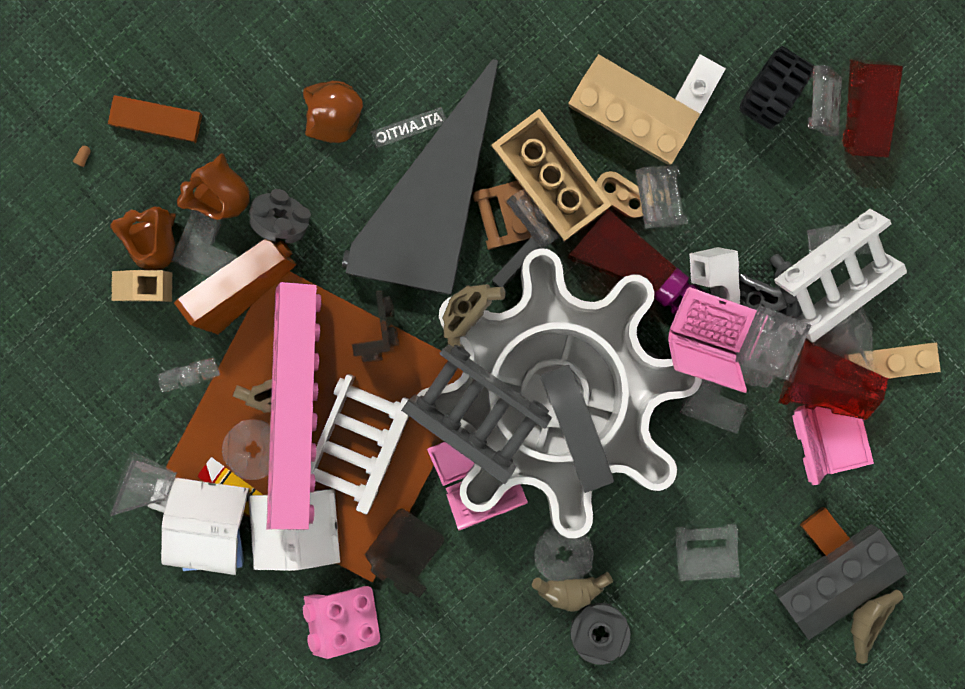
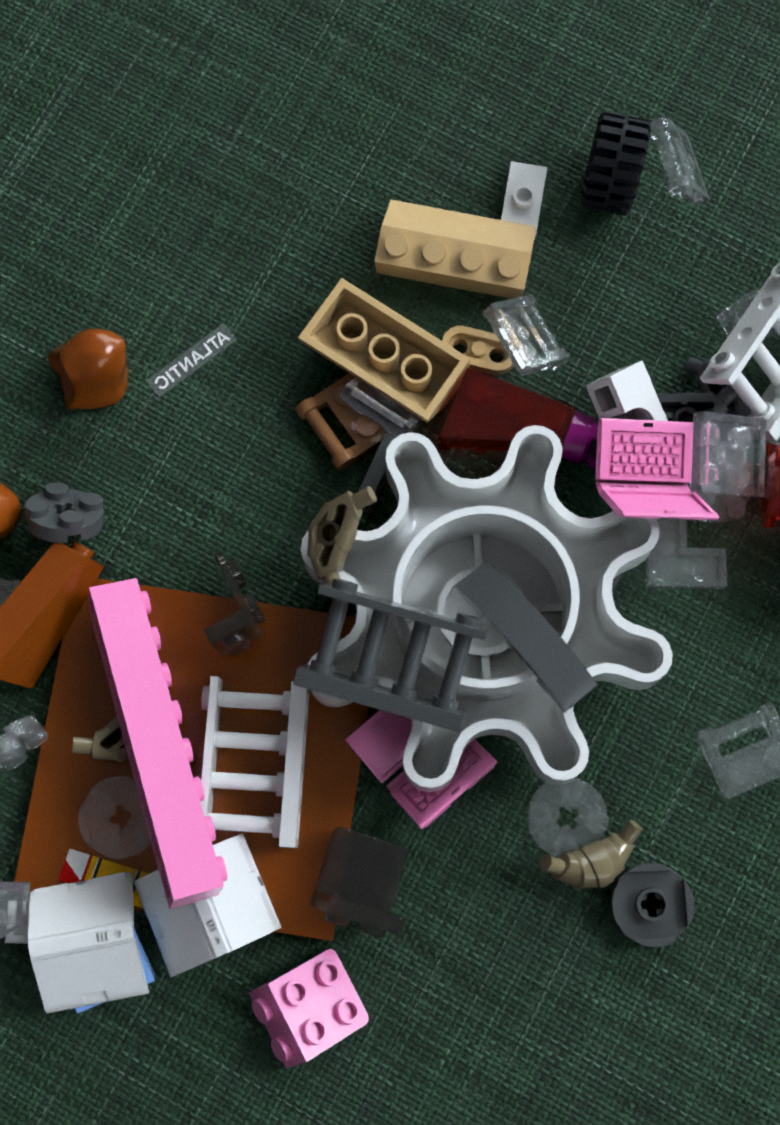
camera: 20 degrees left, 10 degrees down
(423, 220) = (245, 461): dark grey slope -> none
(871, 107) = (735, 150): clear red wedge -> none

